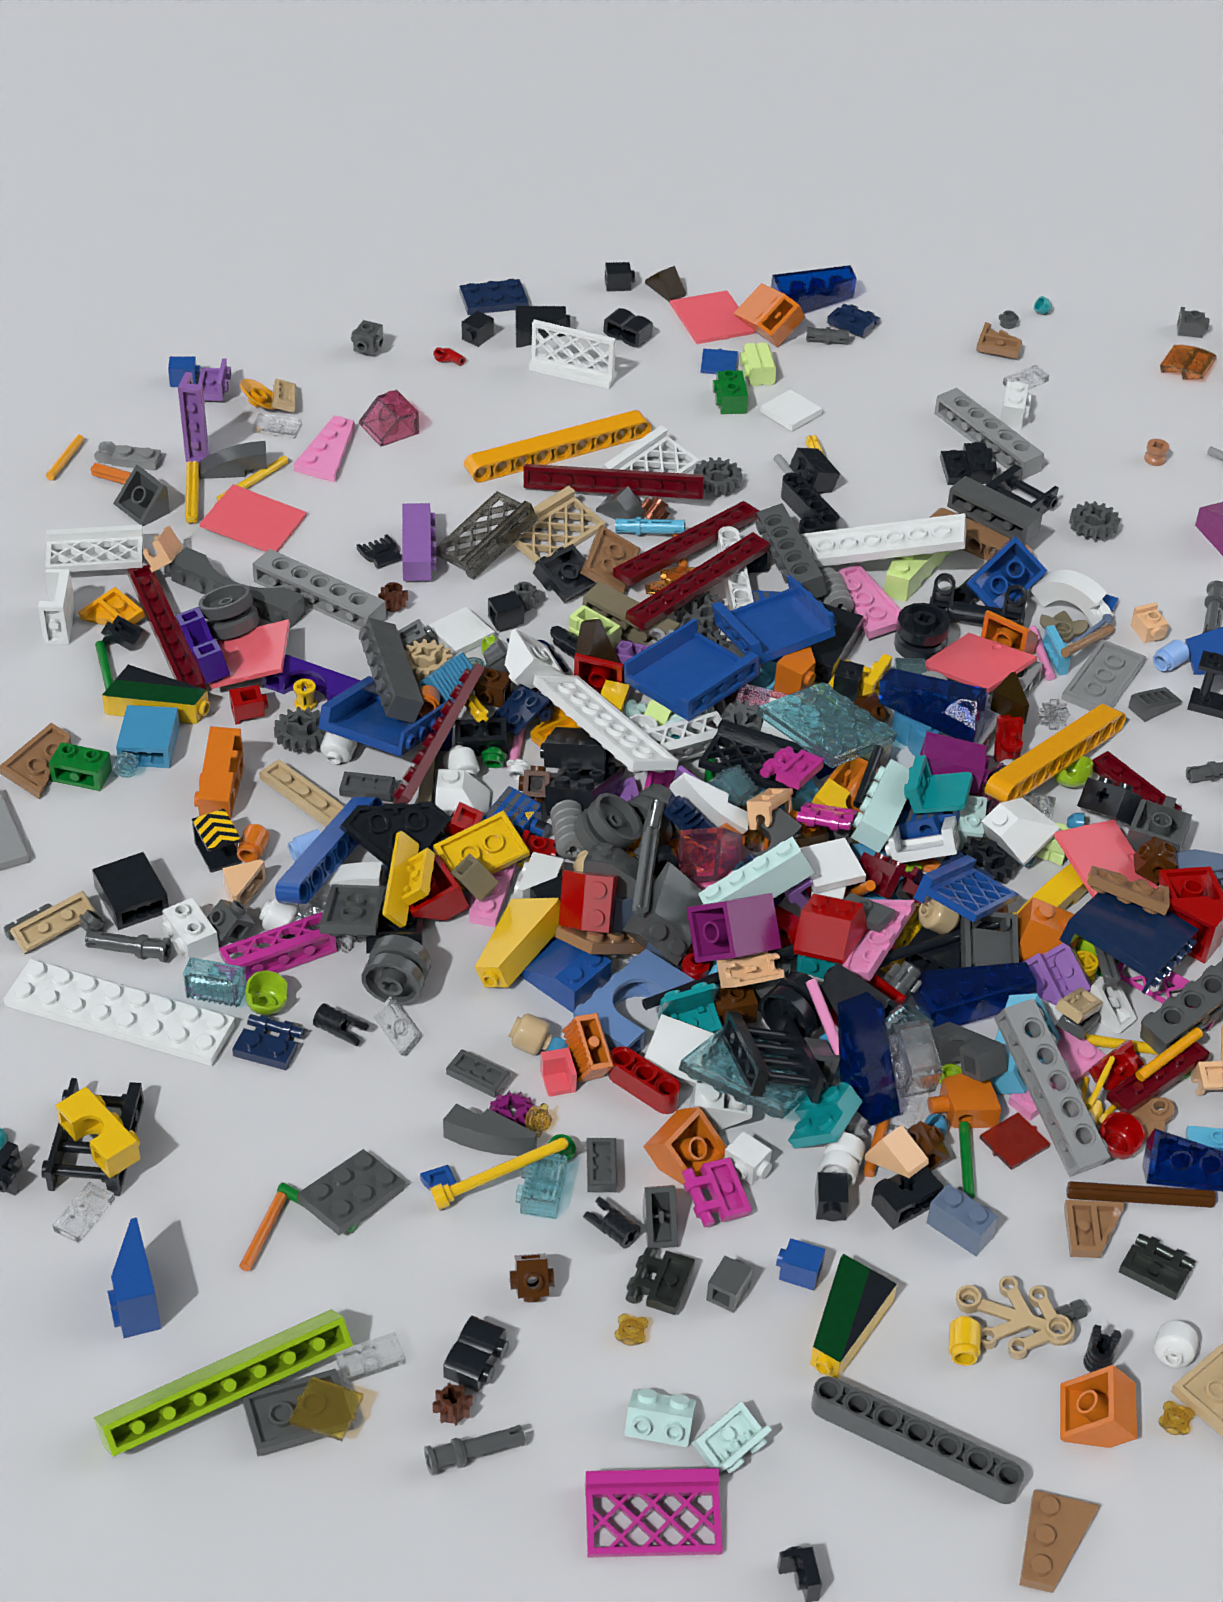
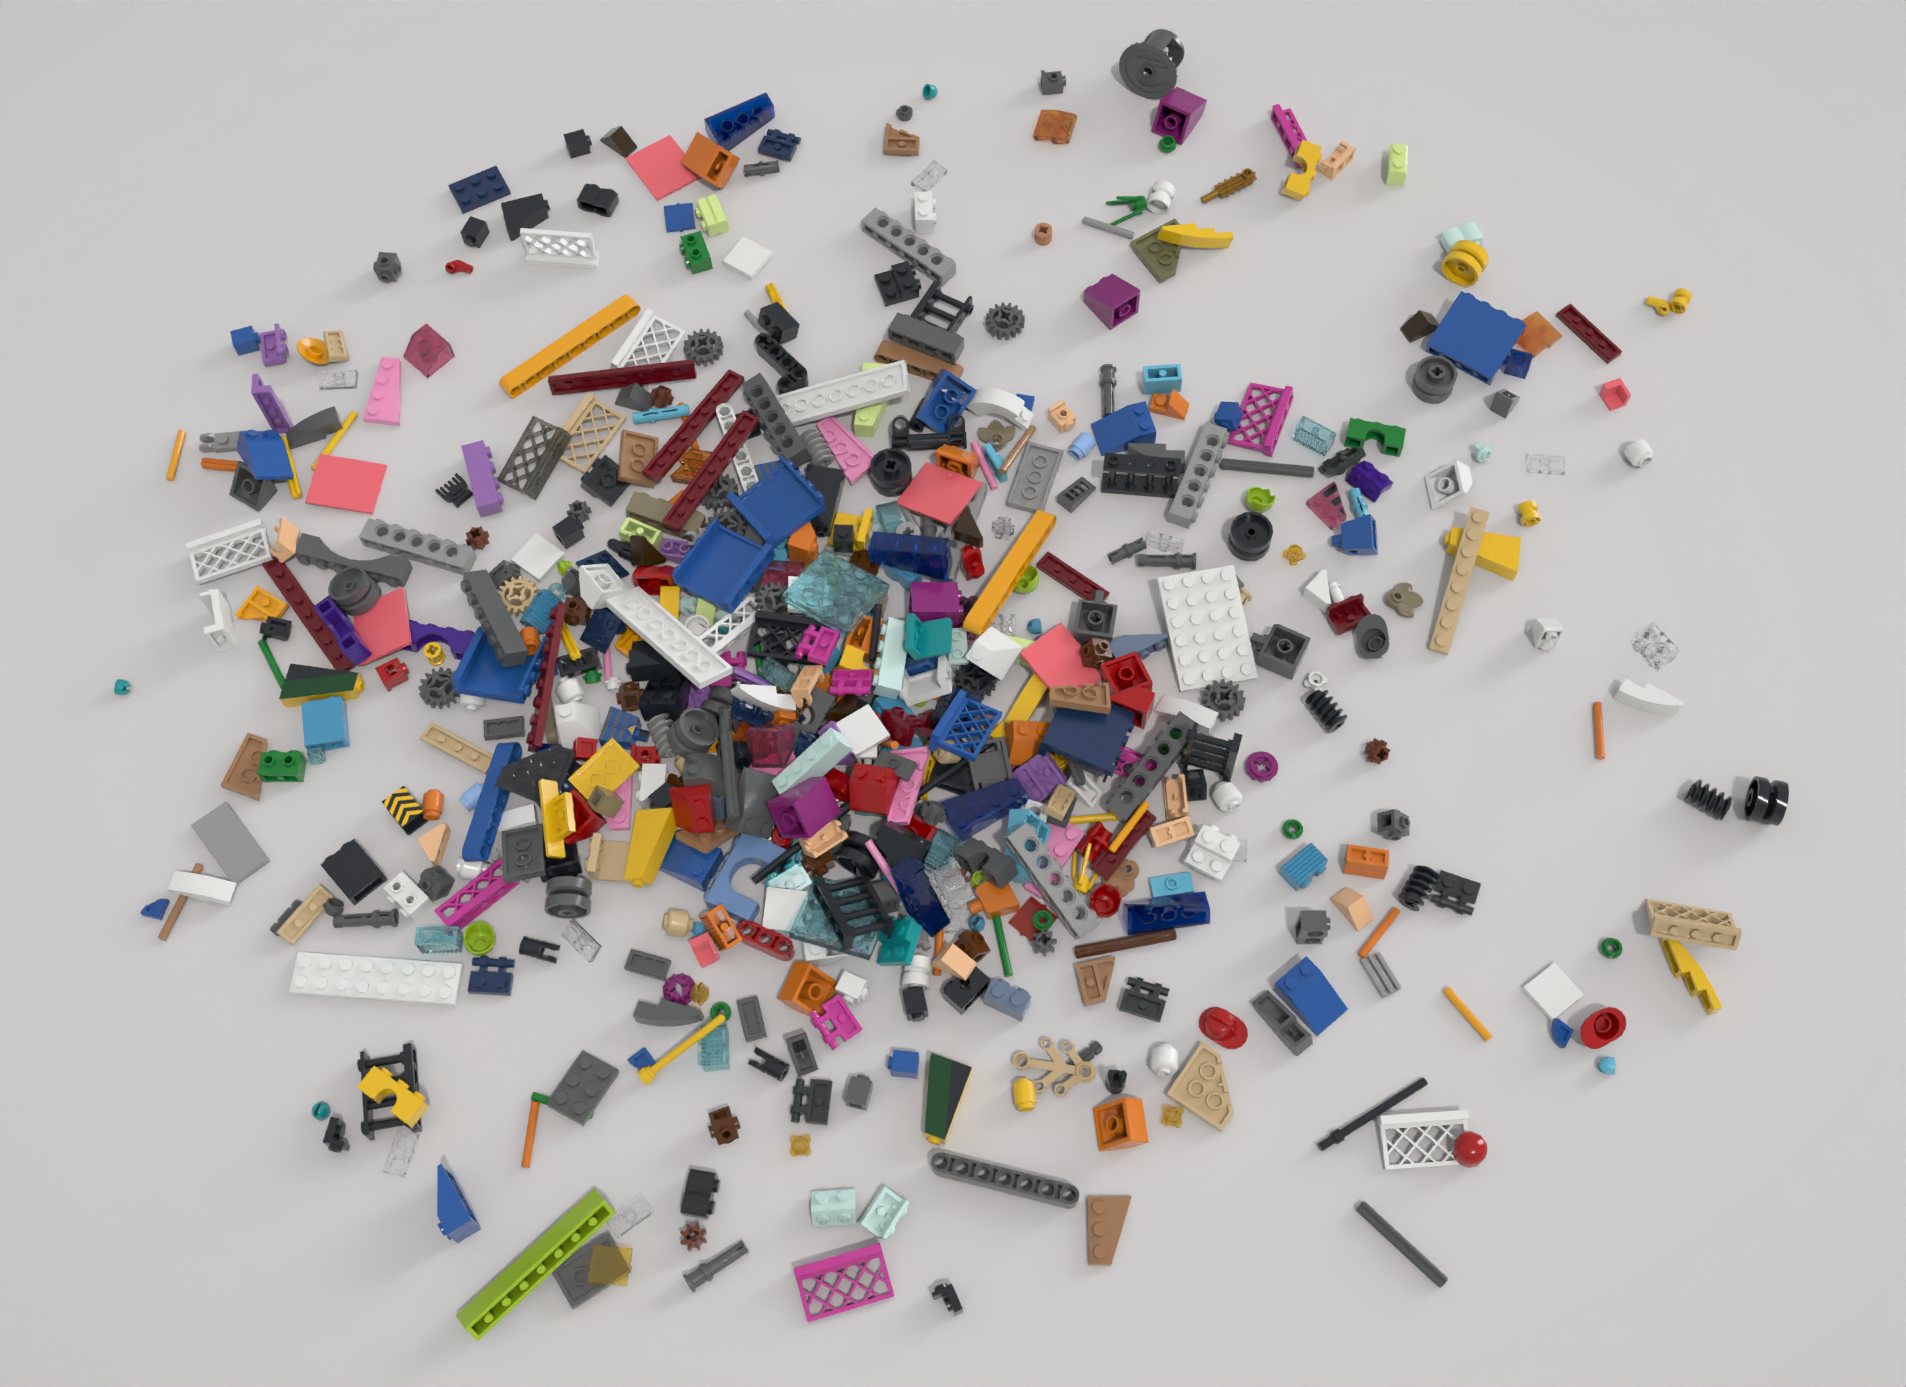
camera: 10 degrees left, 20 degrees up
(169, 464) = (264, 454): none -> blue slope
(220, 771) = (391, 750): orange wedge -> none
(455, 947) = (606, 859): none -> tan bracket
(1026, 1166) = (1039, 945): none -> dark grey gear
(1029, 1139) = (1042, 914): none -> green plate
(1106, 618) = (1028, 422): sand blue hinge -> none
(1109, 800) = (1055, 606): black brick -> none

